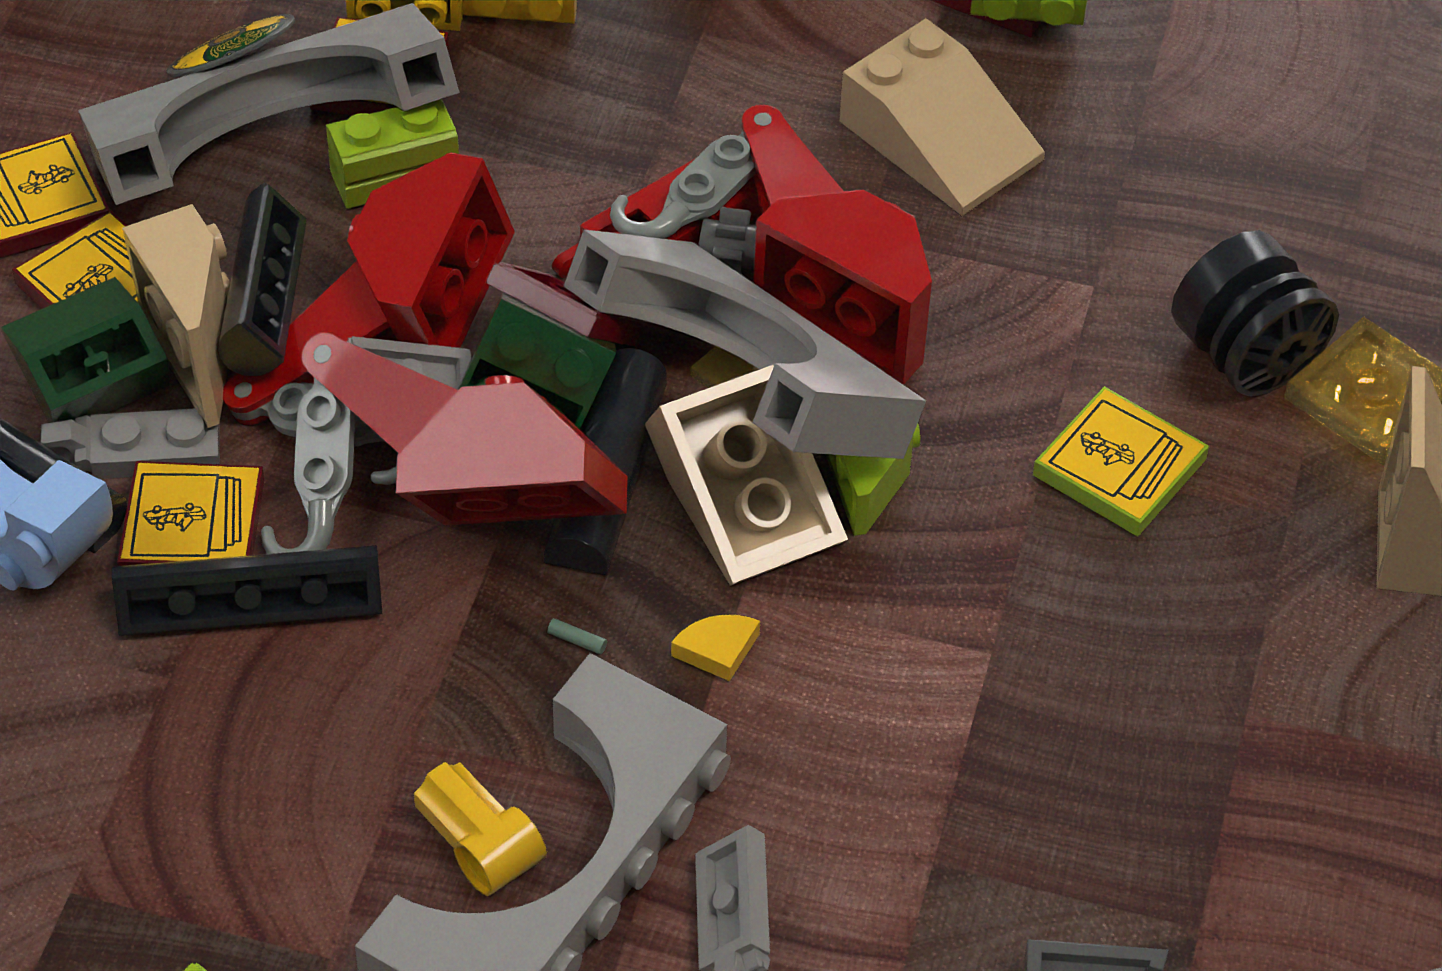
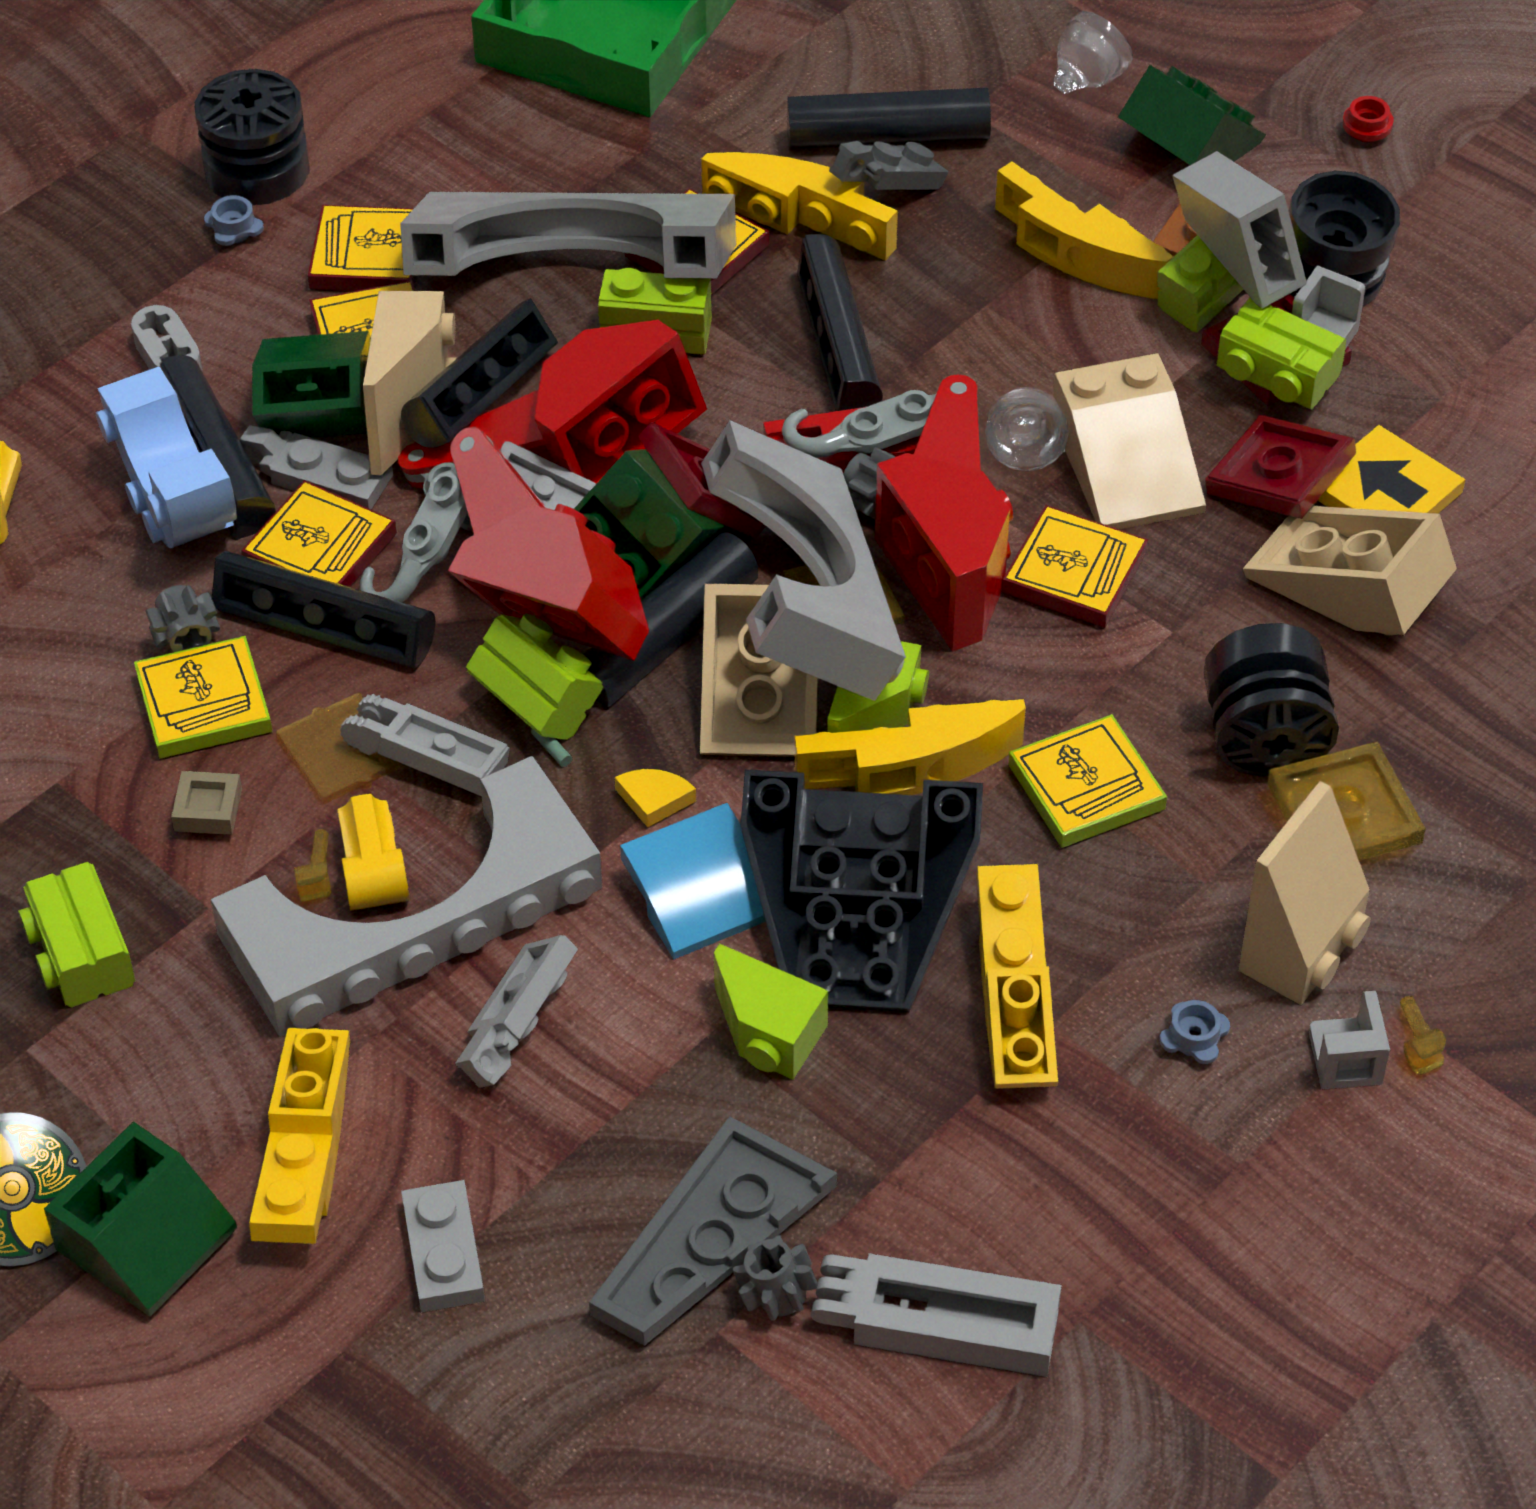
camera: 30 degrees right, 0 degrees up
(108, 659) = (182, 618): none -> dark grey gear
(176, 734) = (203, 697): none -> yellow tile
(230, 45) = (582, 181): shield -> none
(262, 845) = (206, 802): none -> dark tan plate
(360, 728) = (326, 759): none -> clear yellow piece
(428, 879) = (313, 878): none -> clear yellow hand
(454, 686) = (424, 742): none -> light grey hinge
(529, 569) = (535, 675): none -> lime brick
(582, 105) = (837, 324): none -> black brick
(828, 712) = (695, 880): none -> dark azure slope
(842, 134) = (1026, 429): none -> clear helmet
(960, 493) = (936, 745): none -> yellow slope
(975, 254) = (1075, 566): none -> yellow tile
(984, 816) = (769, 1011): none -> lime slope
(990, 649) = (858, 880): none -> black wedge
(1092, 89) = (1280, 466): none -> dark red tile
(1195, 74) = (1392, 478): none -> yellow tile
(1196, 688) = (1015, 977): none -> yellow slope
(1224, 156) = (1357, 565): none -> tan slope
(1389, 648) = (1196, 1017): none -> sand blue plate

